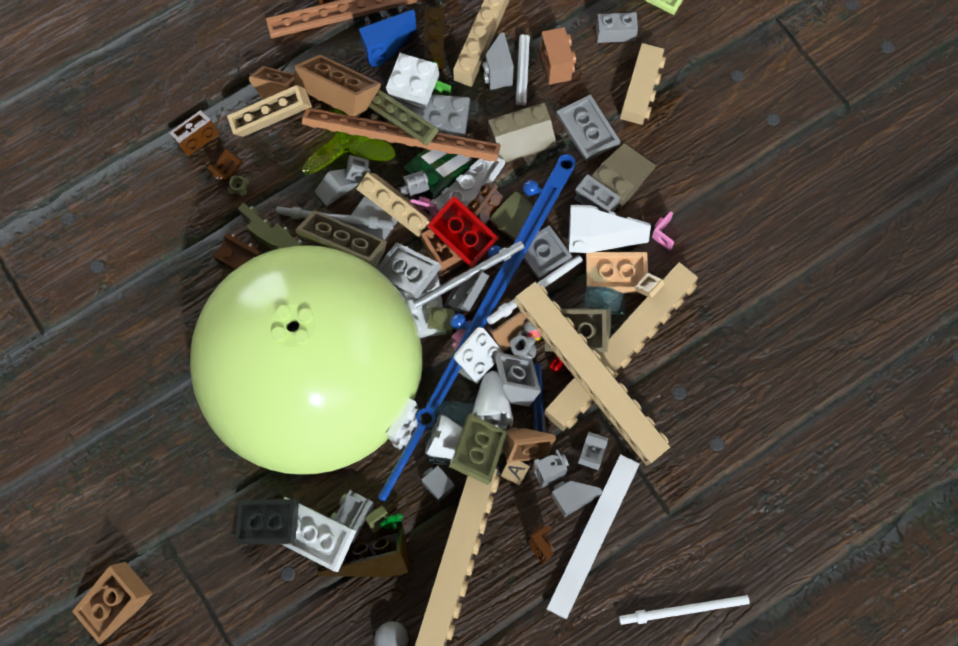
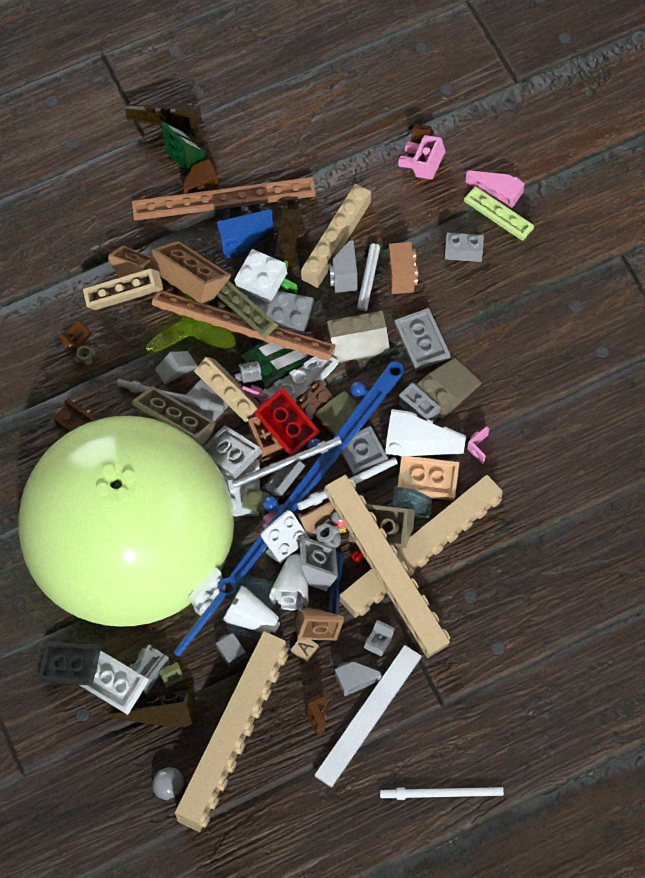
camera: 10 degrees right, 5 degrees down
(194, 133) = (50, 301): reddish brown bracket -> none
(265, 233) = (103, 401): olive slope -> none
(357, 168) = (197, 352): light grey bracket -> none
(392, 521) = (184, 678): green plant -> none
(478, 449) = (270, 620): olive tile -> none
(550, 469) = (336, 648): light grey hinge -> none
(642, 84) = (480, 304): tan brick -> none
(649, 285) = (455, 492): tan tile -> none

